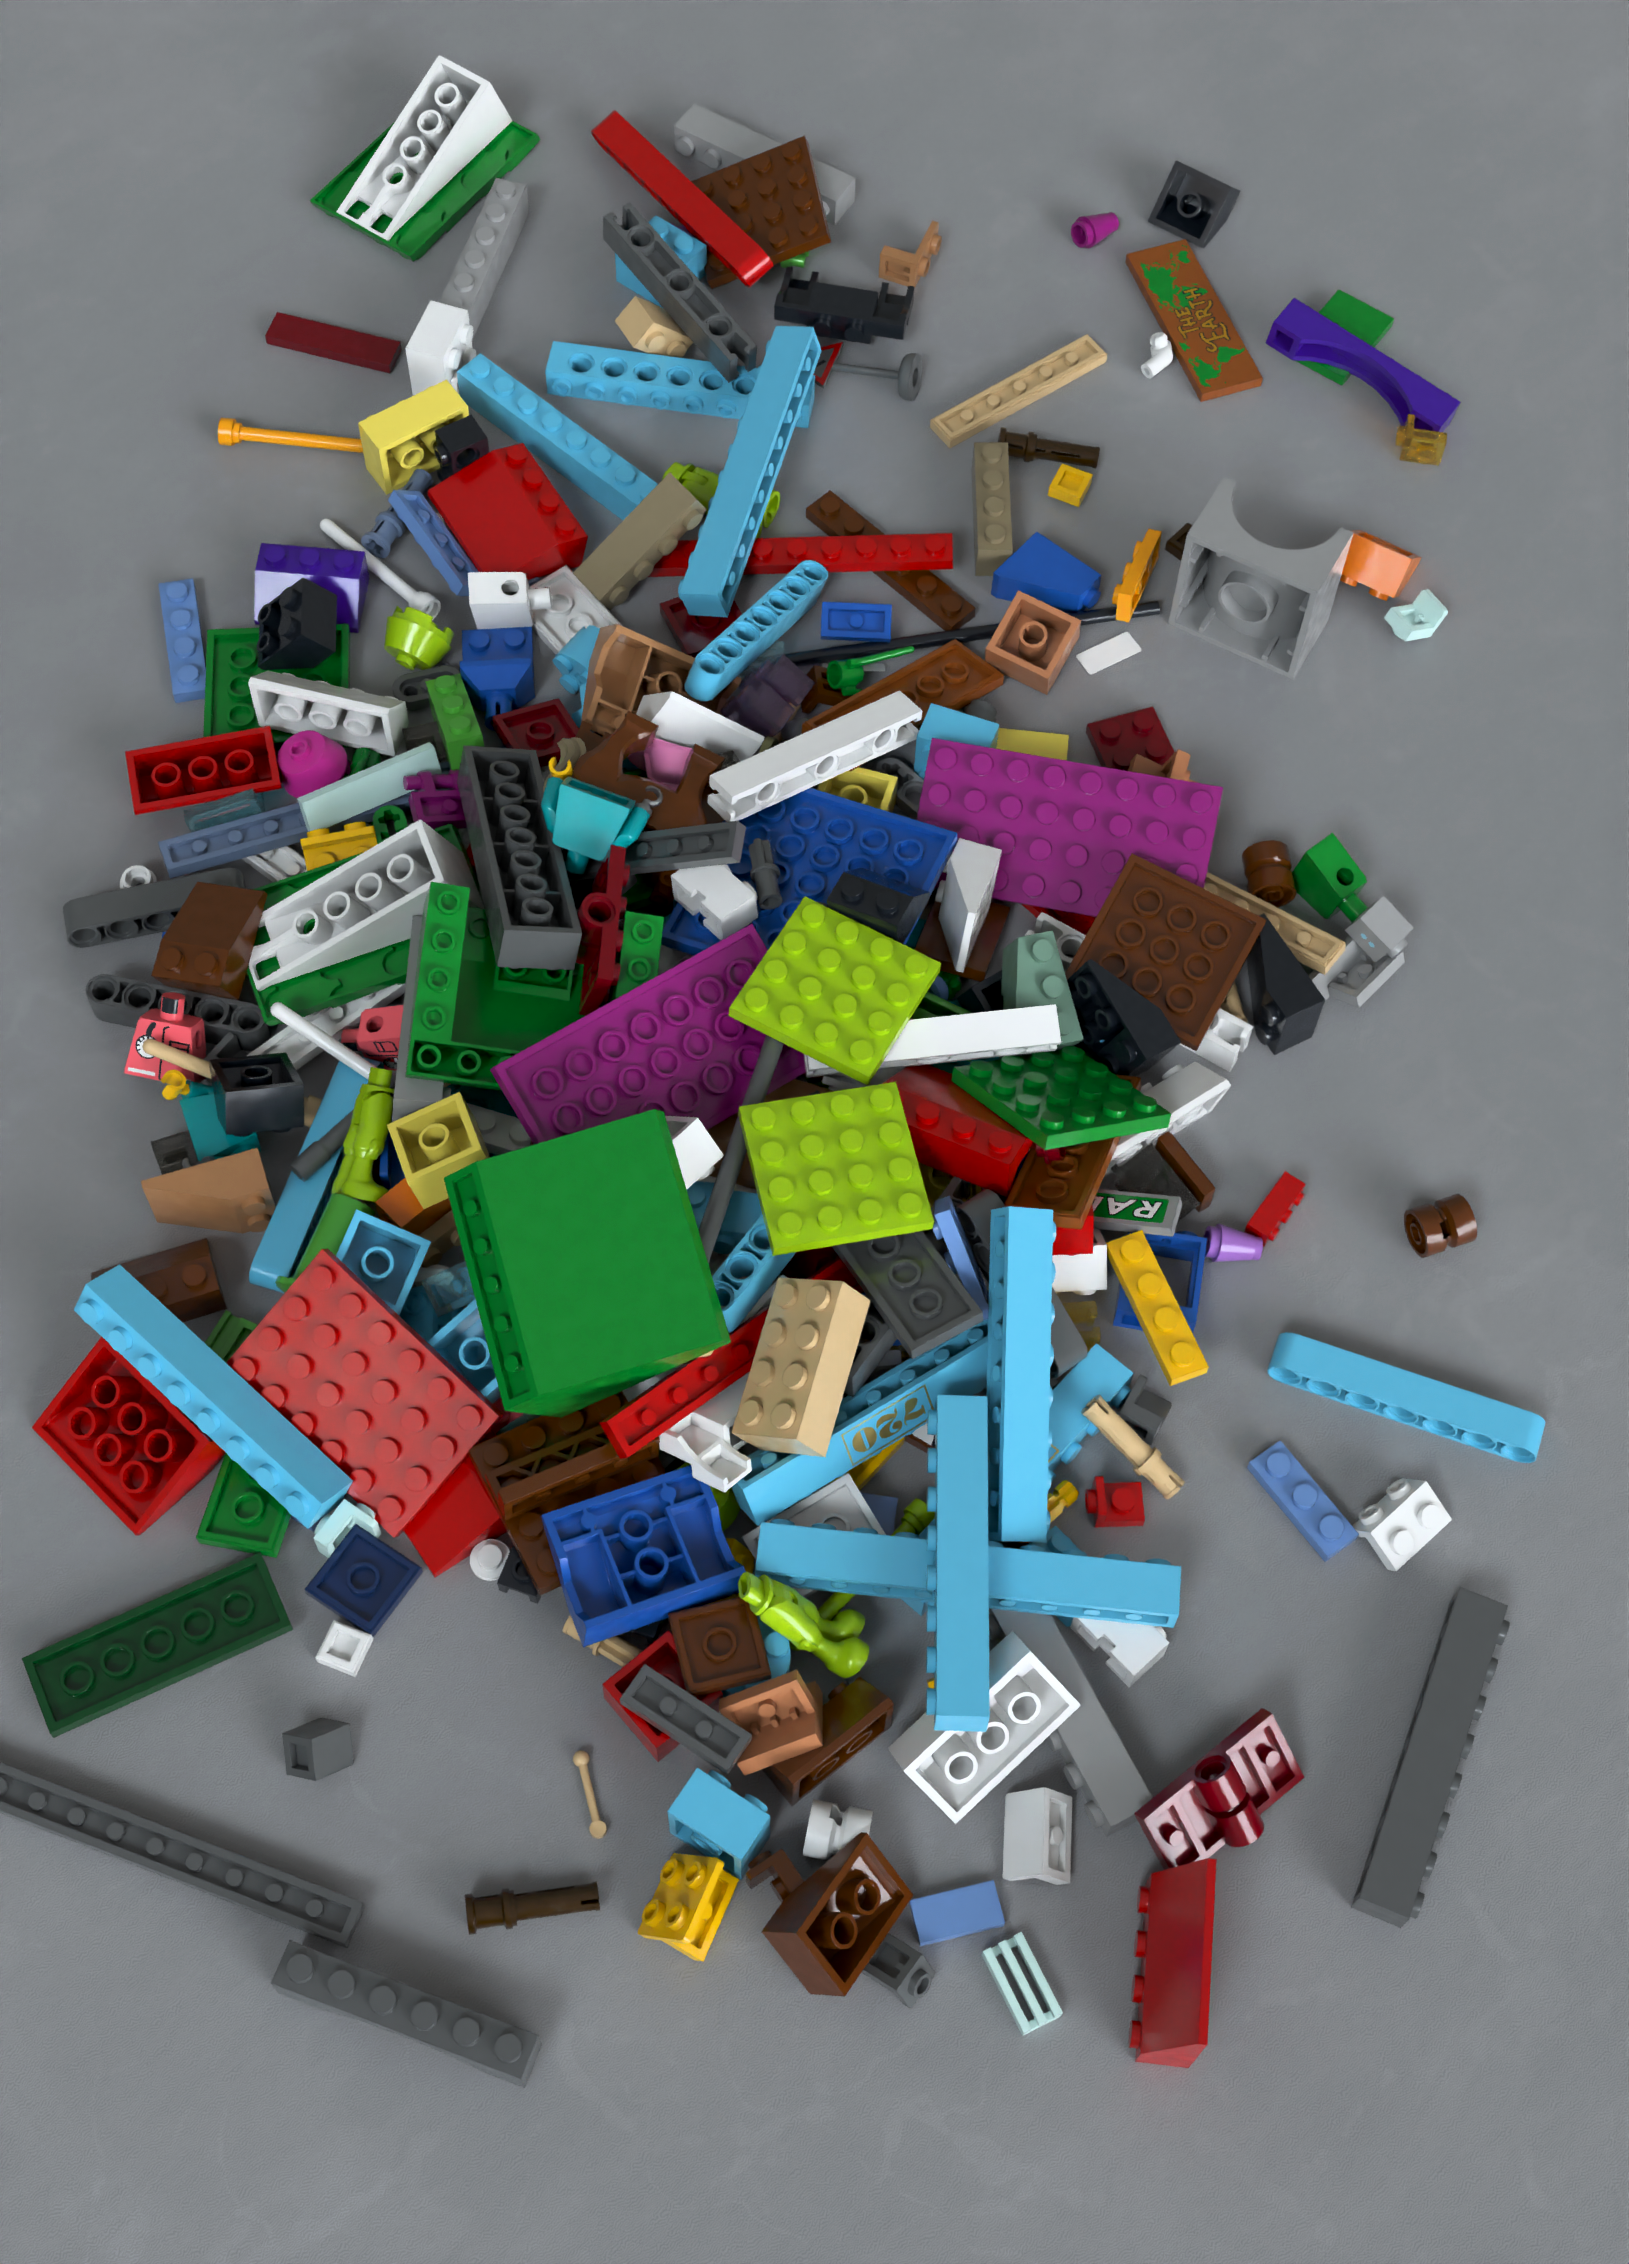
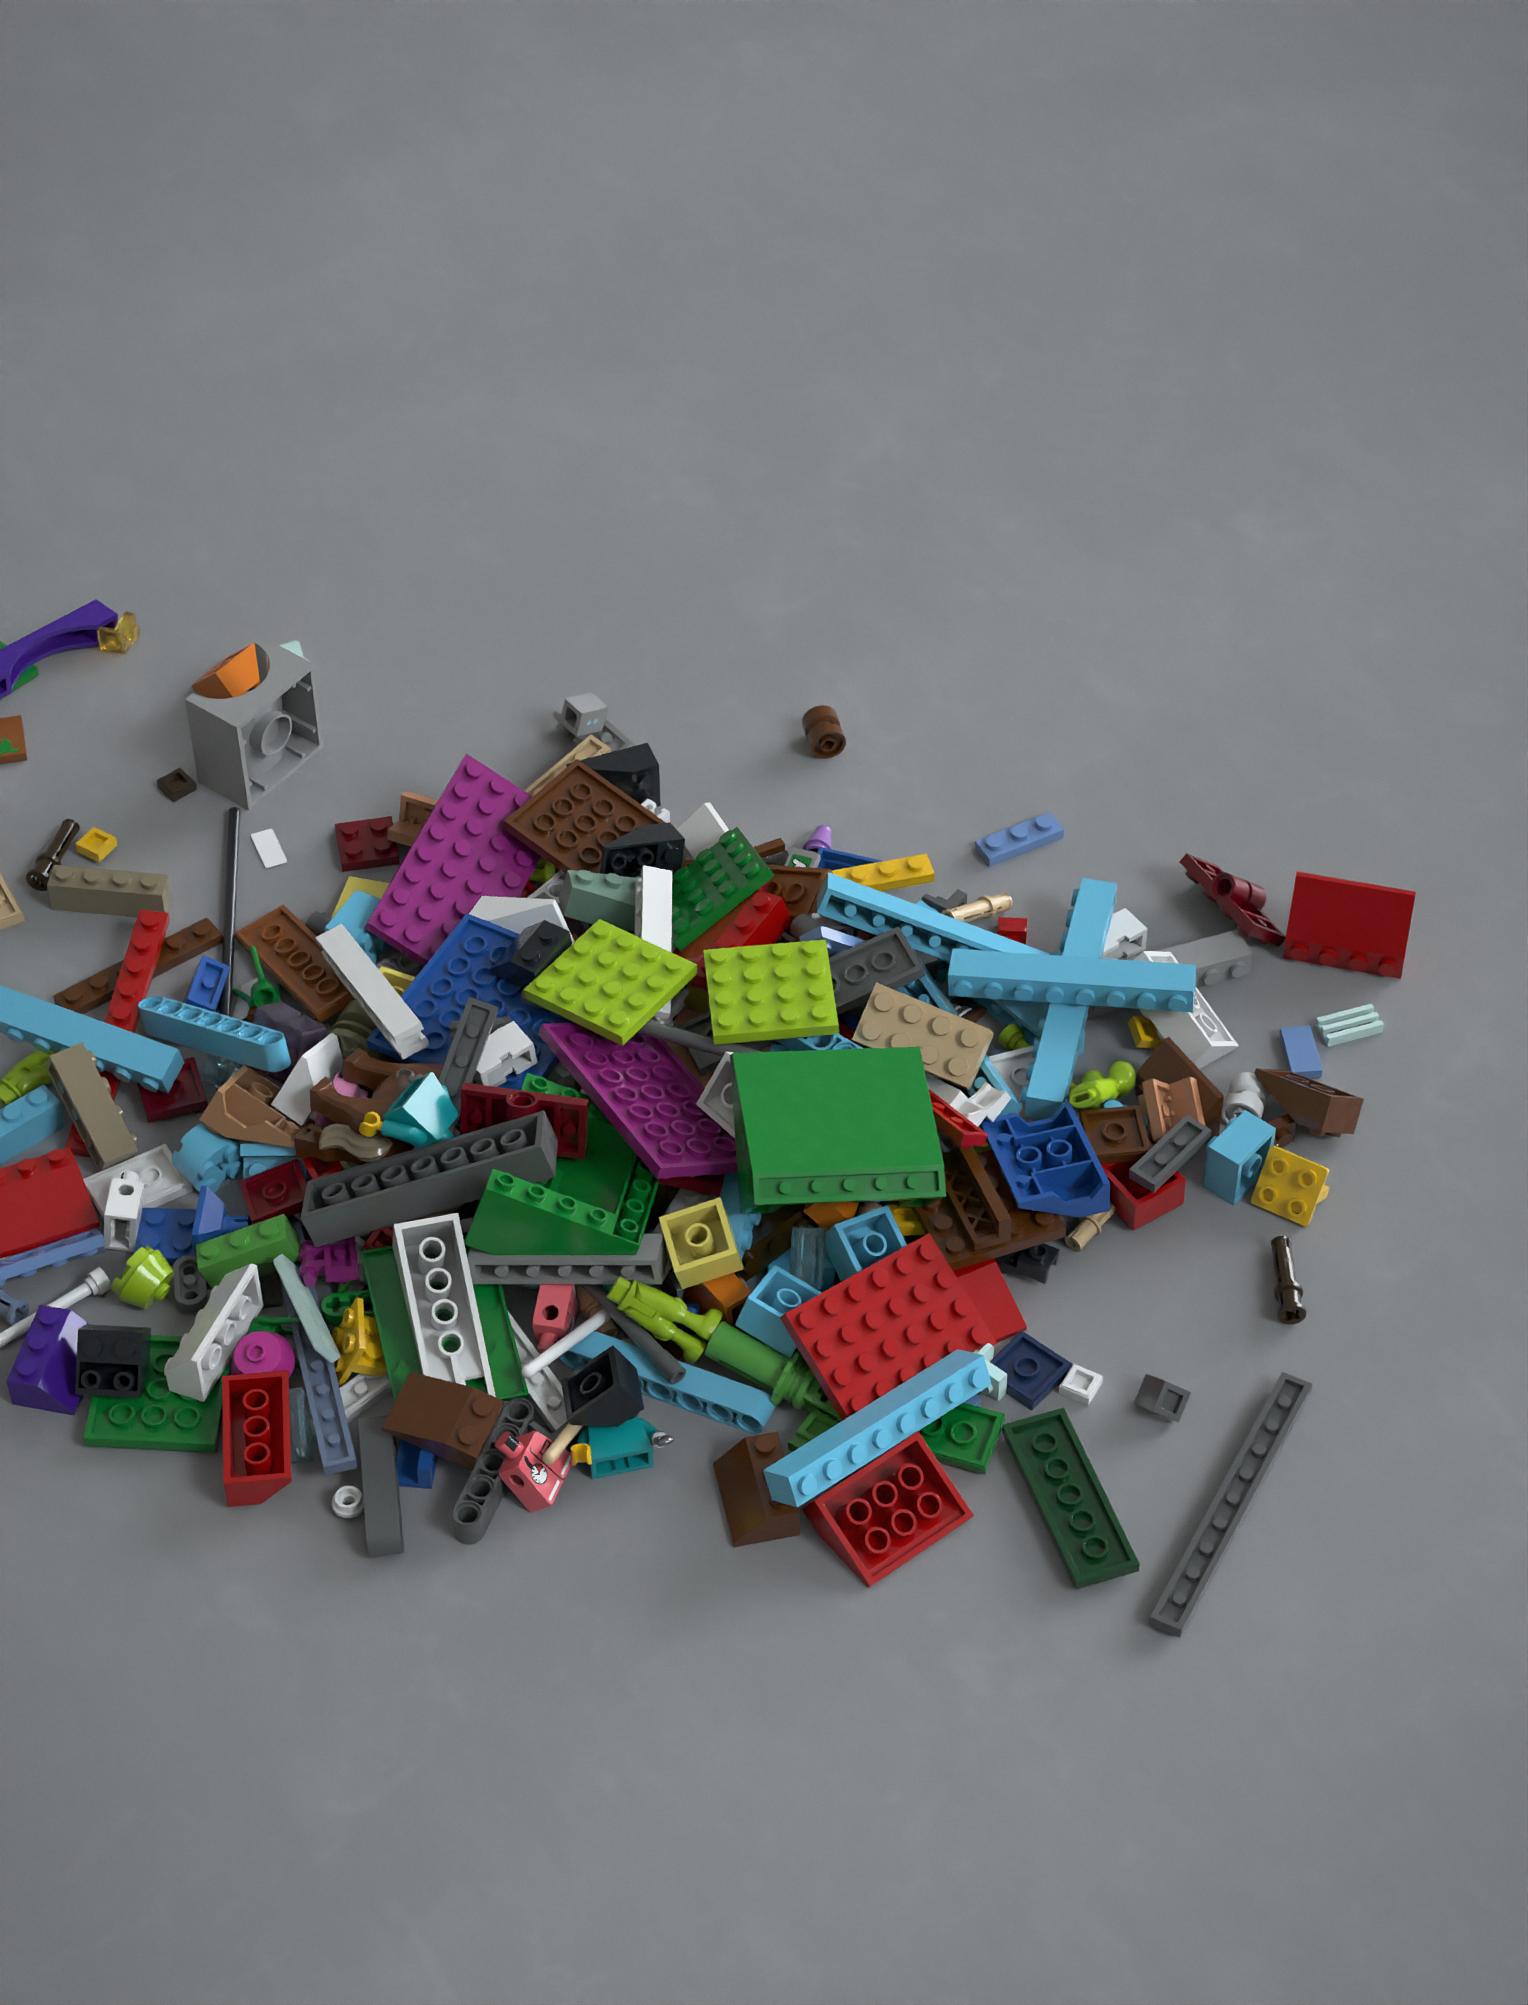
camera: 80 degrees left, 15 degrees down
(172, 1150) = (643, 1473): clear smoke panel -> none
(183, 639) = (81, 1465): medium blue plate -> none
(215, 1195) = (688, 1420): medium nougat slope -> none
(407, 2011) = (1351, 1369): dark grey arch -> none
(489, 1559) = (1021, 1288): white plate -> none
(597, 1827) = (1229, 1244): tan hinge -> none
(900, 1970) = (1342, 1077): dark grey bracket -> none
(1032, 642) = (262, 877): nougat brick -> none
(1037, 1836) = (1250, 1005): white panel -> none
(1048, 575) = (192, 867): blue slope -> none
(1136, 575) = (208, 810): light orange plate -> none
(1269, 872) = (518, 772): reddish brown wheel -> none
(1276, 1208) = (791, 818): red piece -> none
(1330, 880) = (526, 743): green torso -> none
(1402, 1521) = (1040, 789): white bracket -> none
(1407, 1397) = (950, 773): medium azure beam -> none
(1430, 1759) = (1208, 799): dark grey brick -> none

